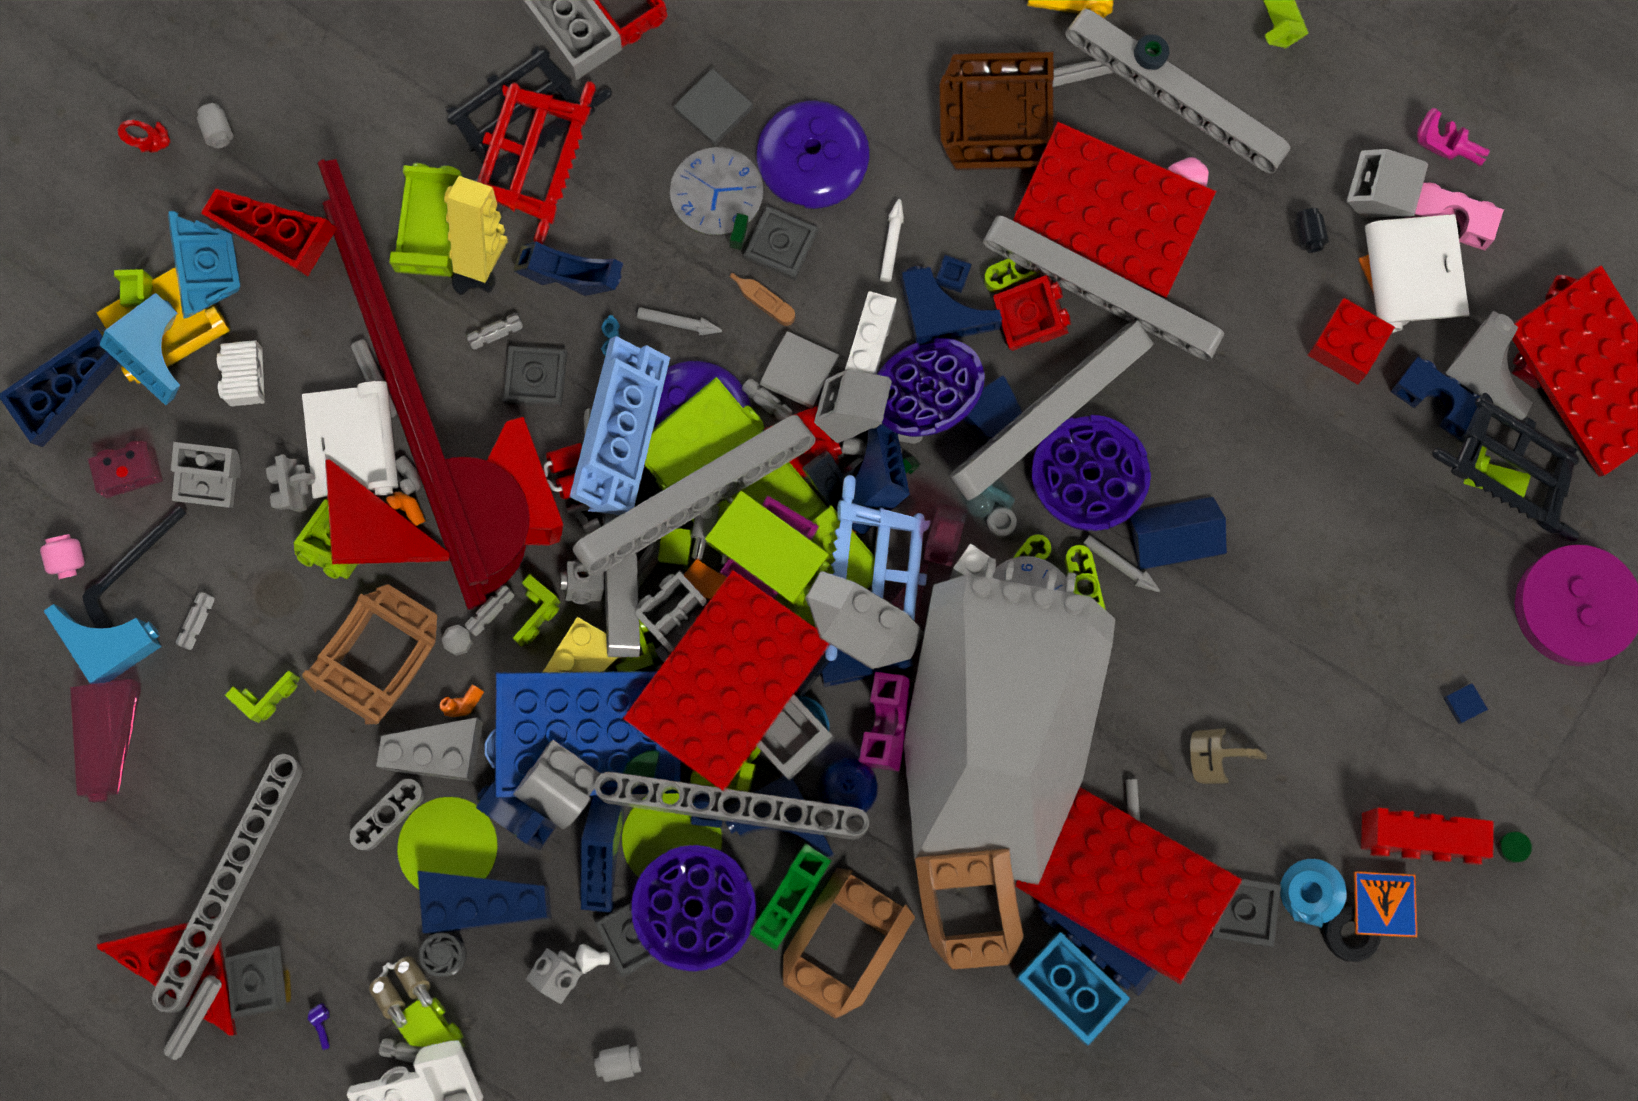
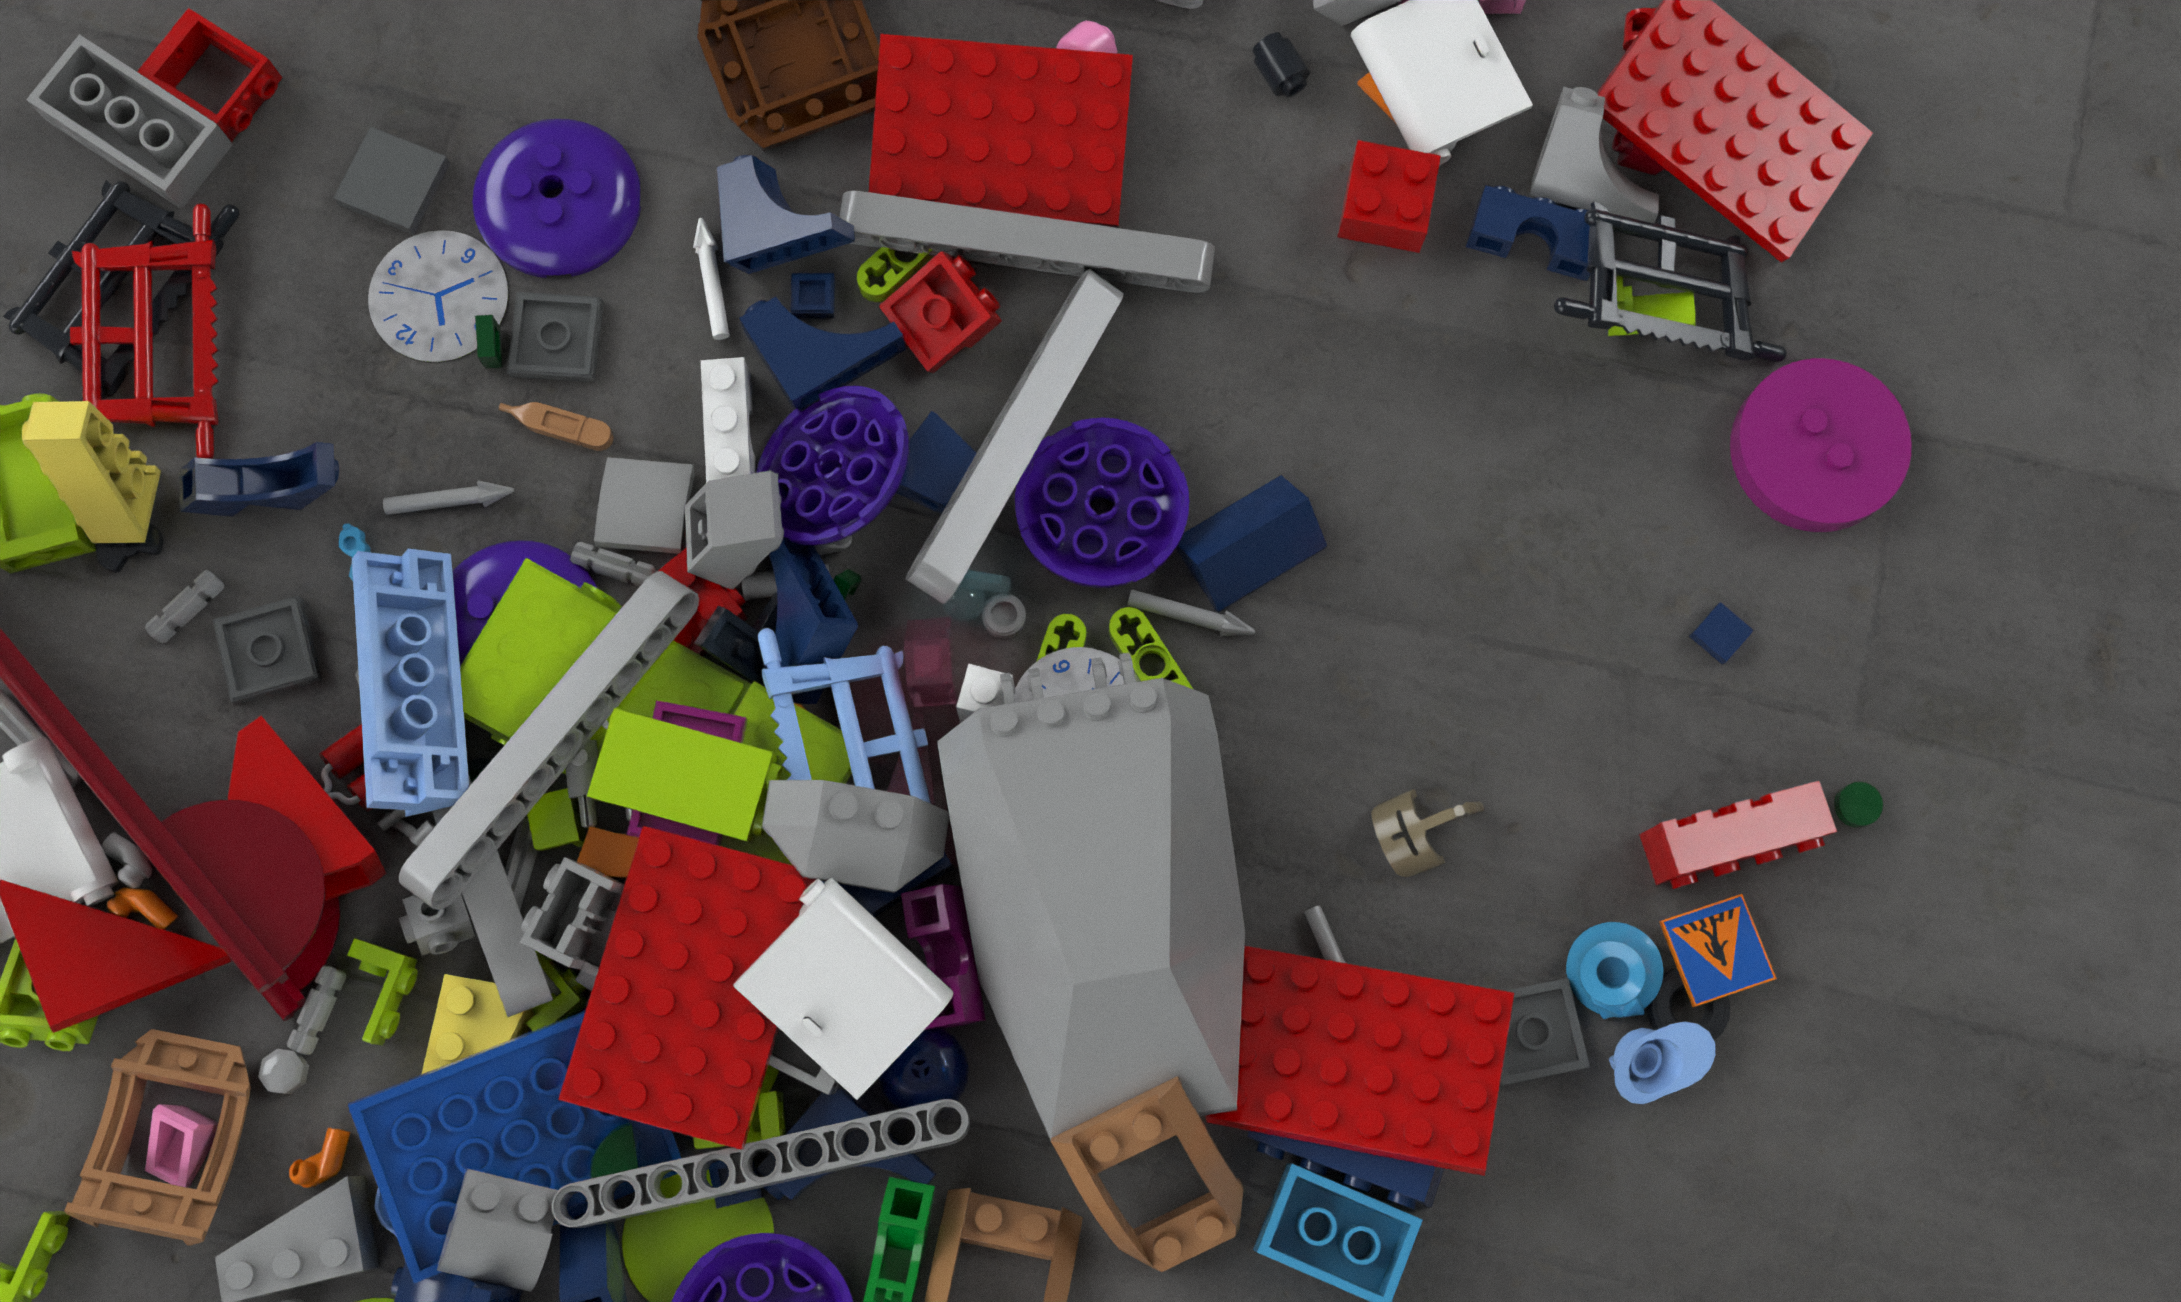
camera: 25 degrees left, 0 degrees up
(379, 660) = (178, 1143): none -> bright pink slope
(827, 713) = (850, 981): none -> white door
(936, 216) = (761, 226): none -> arch
(1322, 960) = (1661, 1060): none -> light blue piece

